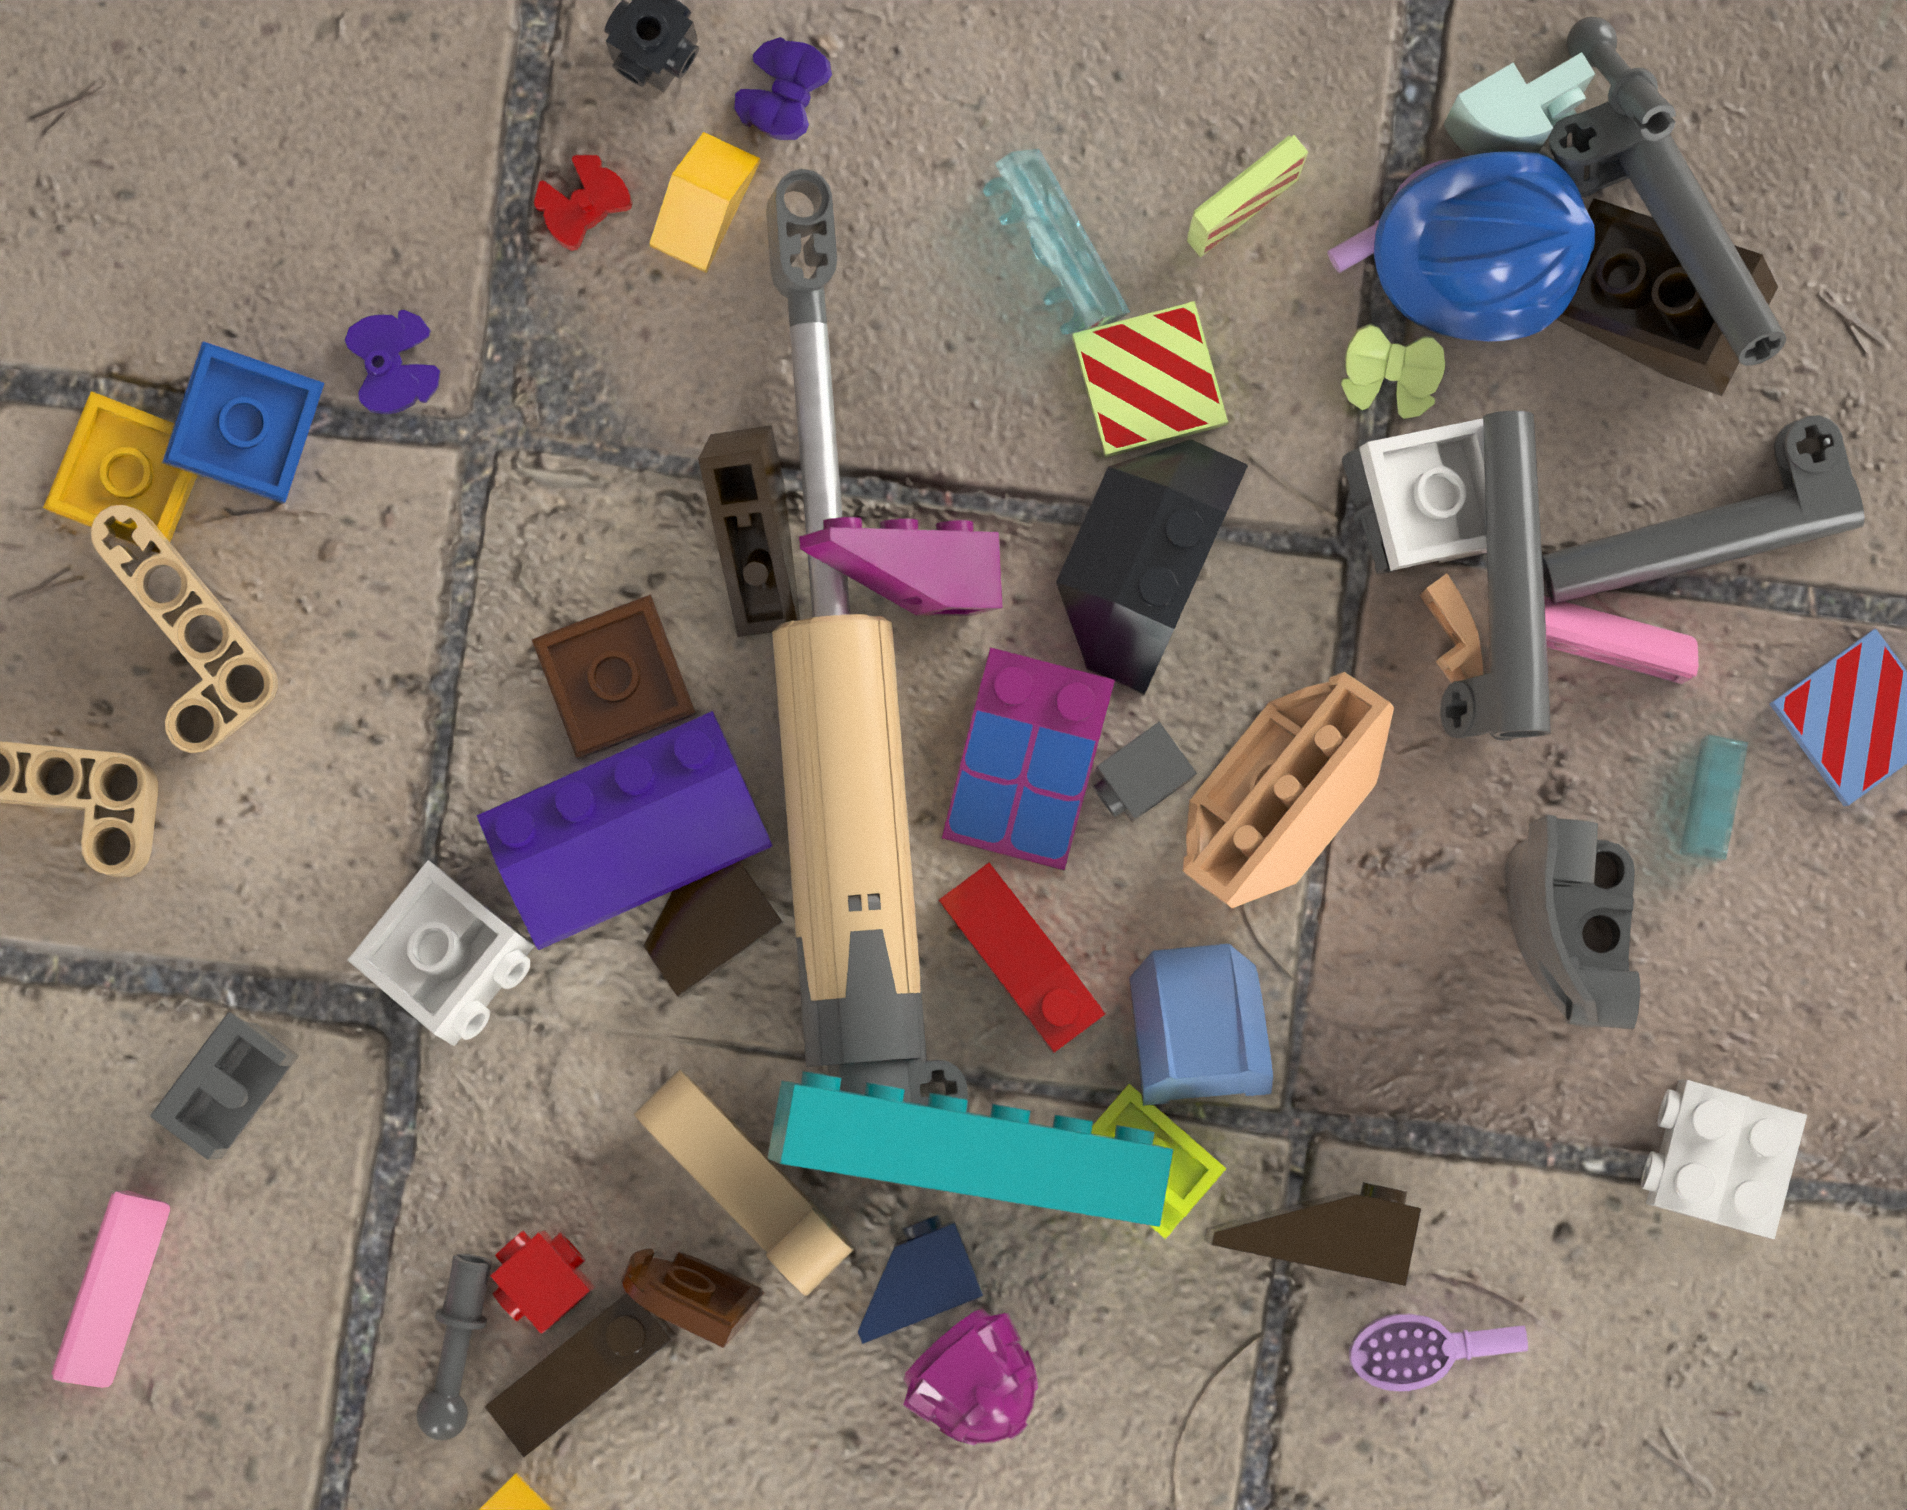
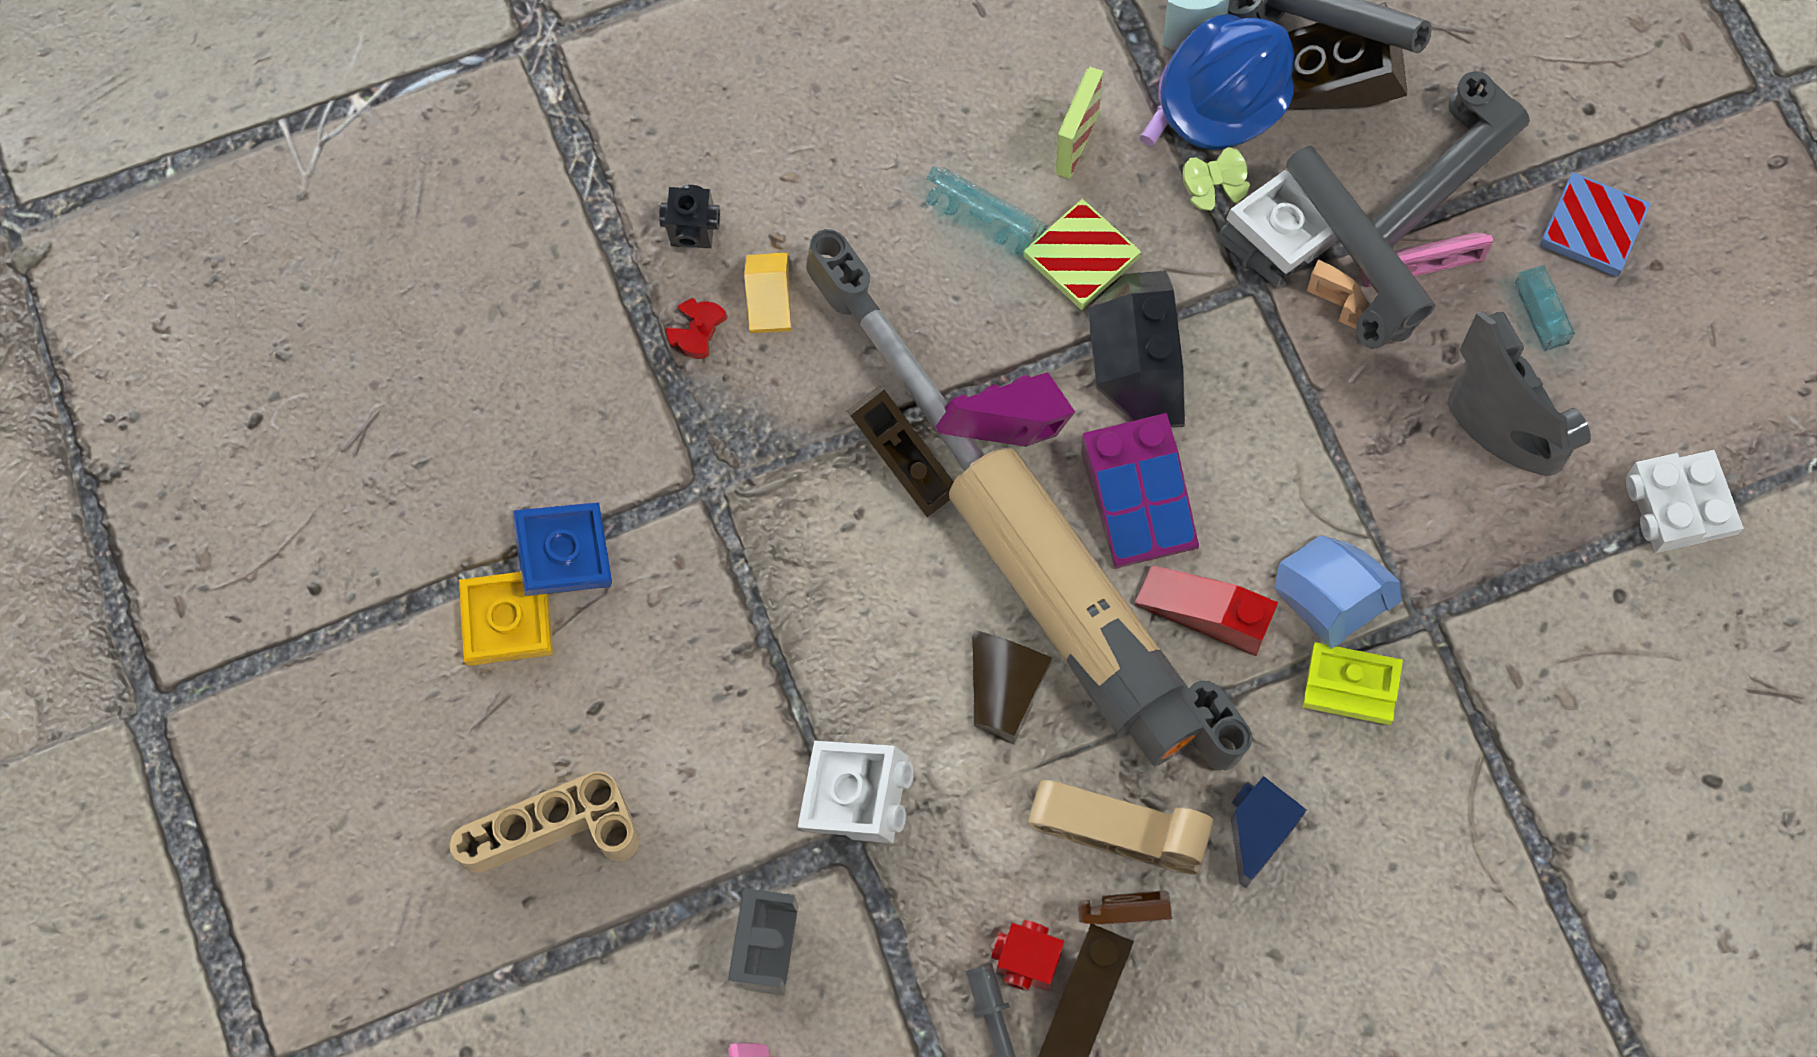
camera: 25 degrees left, 15 degrees down
(176, 620) = (580, 680): tan beam -> none
(390, 384) = (637, 483): dark purple piece -> none
(613, 677) = (866, 578): reddish brown tile -> none
(624, 830) = (925, 655): dark purple slope -> none
(797, 72) = (782, 196): dark purple piece -> none
(970, 1152) = (1249, 718): teal brick -> none
(975, 1381) = (1333, 866): magenta helmet -> none
(1142, 773) = (1212, 463): dark grey brick -> none
(1286, 789) = (1301, 423): light nougat wedge -> none
(1341, 1232) = (1502, 654): dark brown slope -> none
(1418, 1351) = (1582, 706): lavender piece -> none

